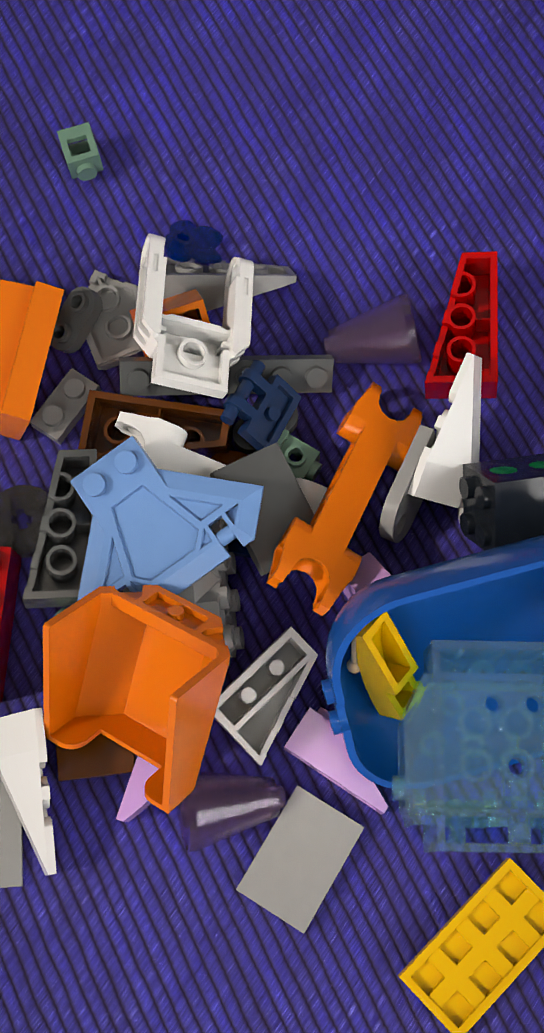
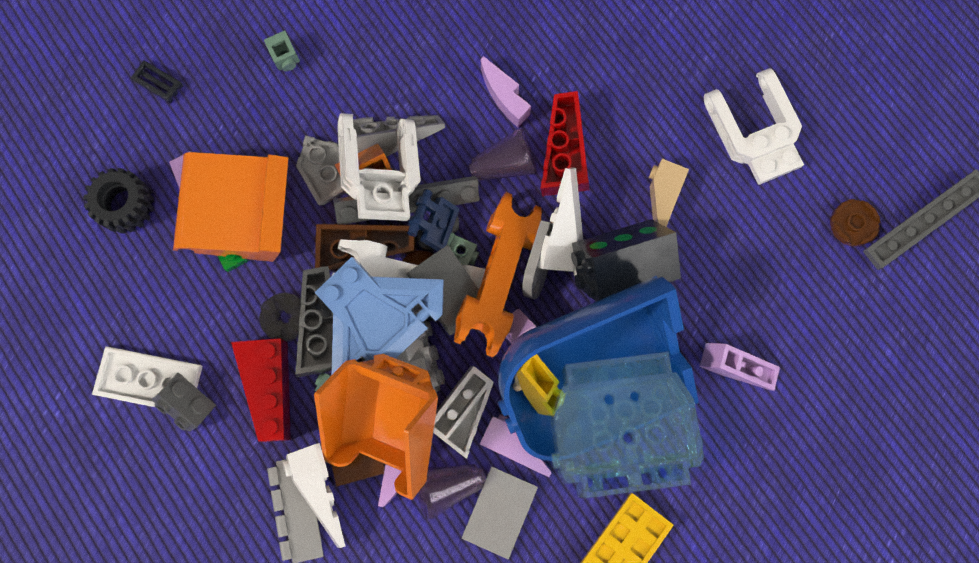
camera: 10 degrees left, 5 degrees up
(64, 406) = (300, 234): light grey plate -> none
(76, 320) = (298, 174): dark grey plate -> none
(190, 242) = (370, 107): clear blue plate -> none
(389, 246) = (505, 93): none -> lavender slope

